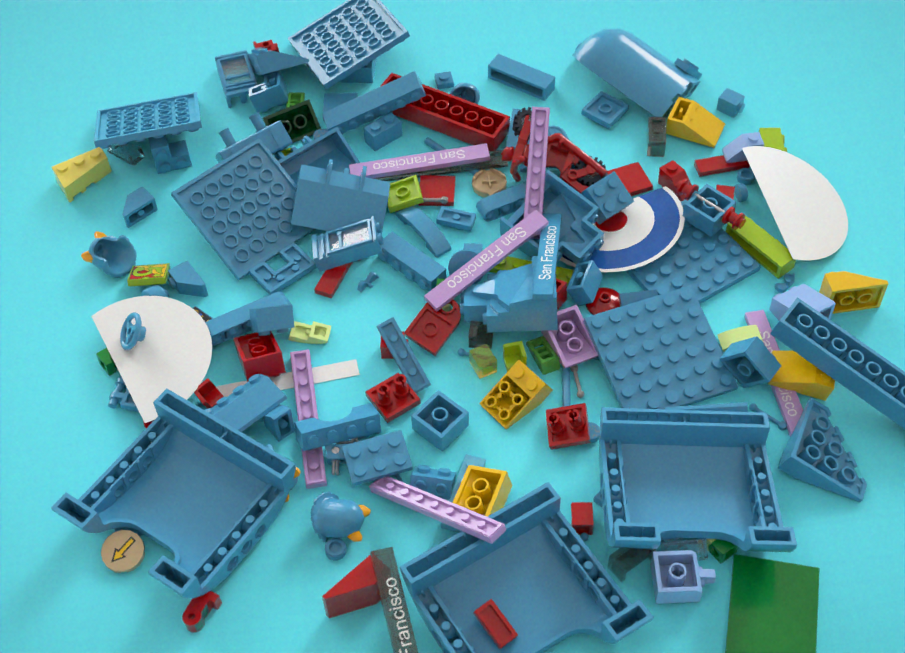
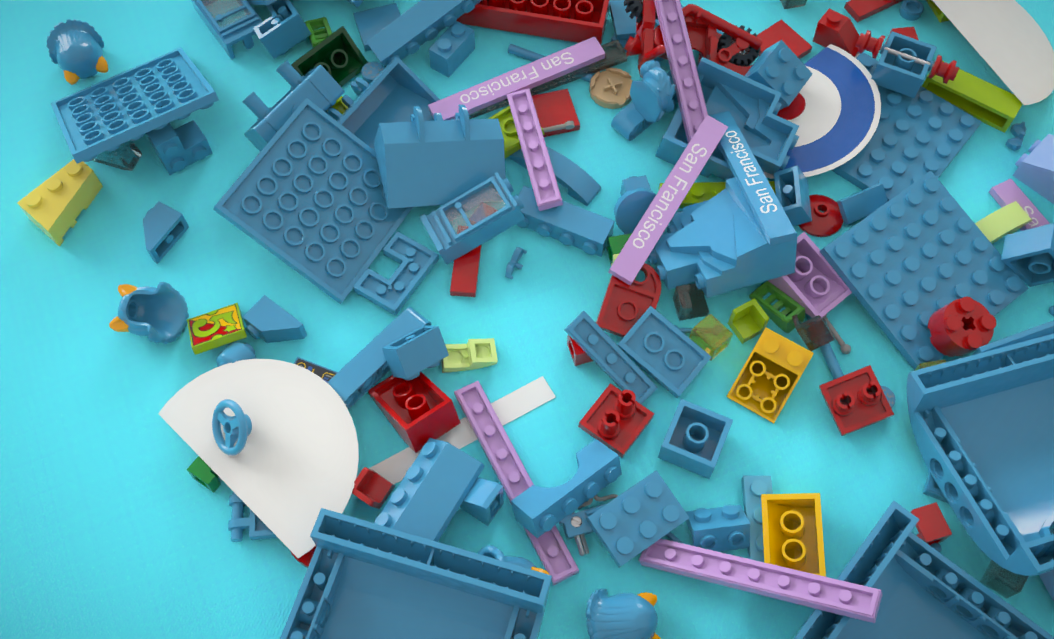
camera: 20 degrees left, 10 degrees up
(126, 79) = (76, 50): none -> dark azure hair
(409, 209) = (534, 150): none -> lavender tile
(444, 361) = (664, 351): none -> dark azure plate
(456, 218) = (593, 146): dark azure plate -> none
(508, 187) = (653, 93): none -> dark azure piece
(555, 372) = (813, 332): none -> clear smoke panel
(664, 391) = (961, 327): none -> red brick
(741, 192) = (922, 30): dark azure tile -> none

